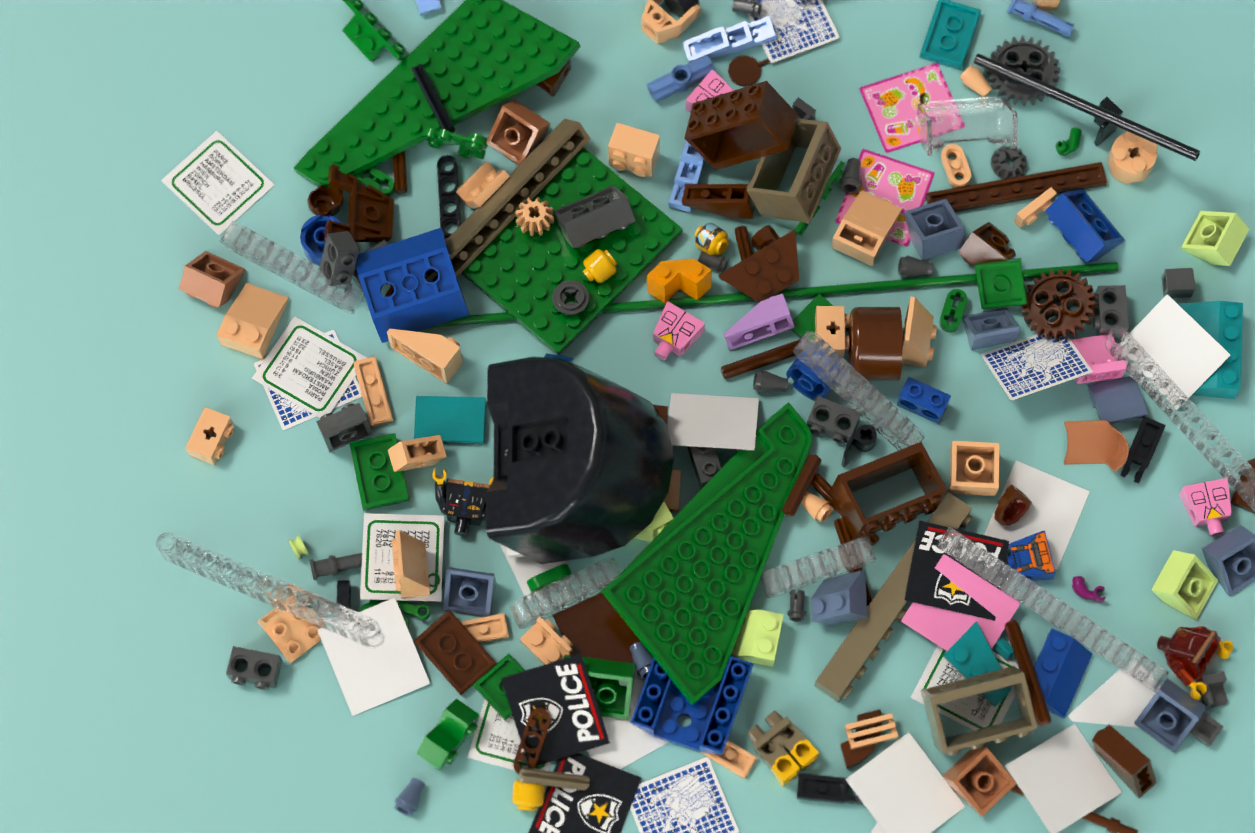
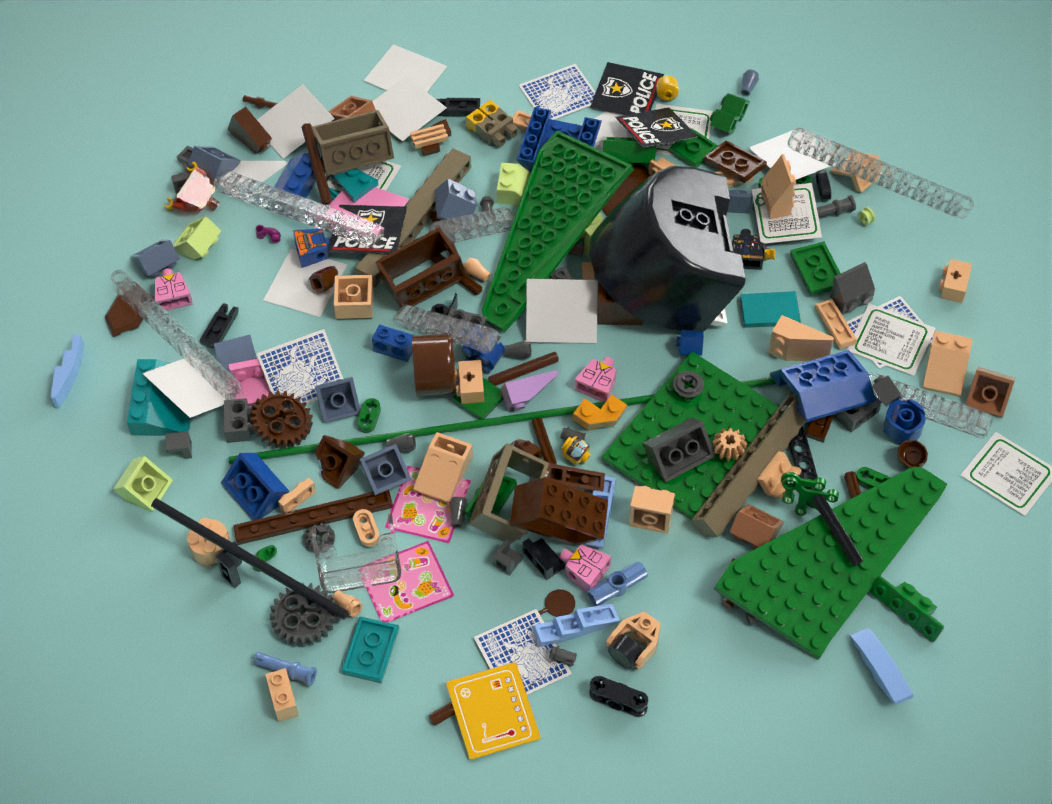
camera: 175 degrees right, 15 degrees down
(256, 662) = (878, 142): dark grey brick -> none
(369, 210) = (872, 444): reddish brown wing -> none
(417, 453) = (790, 271): light nougat brick -> none
(532, 722) = (669, 112): reddish brown beam -> none
(554, 779) = (650, 91): dark tan axle -> none
(599, 266) = (667, 407): yellow head -> none
(766, 270) = (529, 423): reddish brown wing -> none
(801, 485) = (488, 277): reddish brown axle -> none
(917, 334) = (400, 381): light nougat slope -> none
(1001, 283) = (328, 426): green tile -> none
(1095, 444) = (252, 326): nougat piece -> none

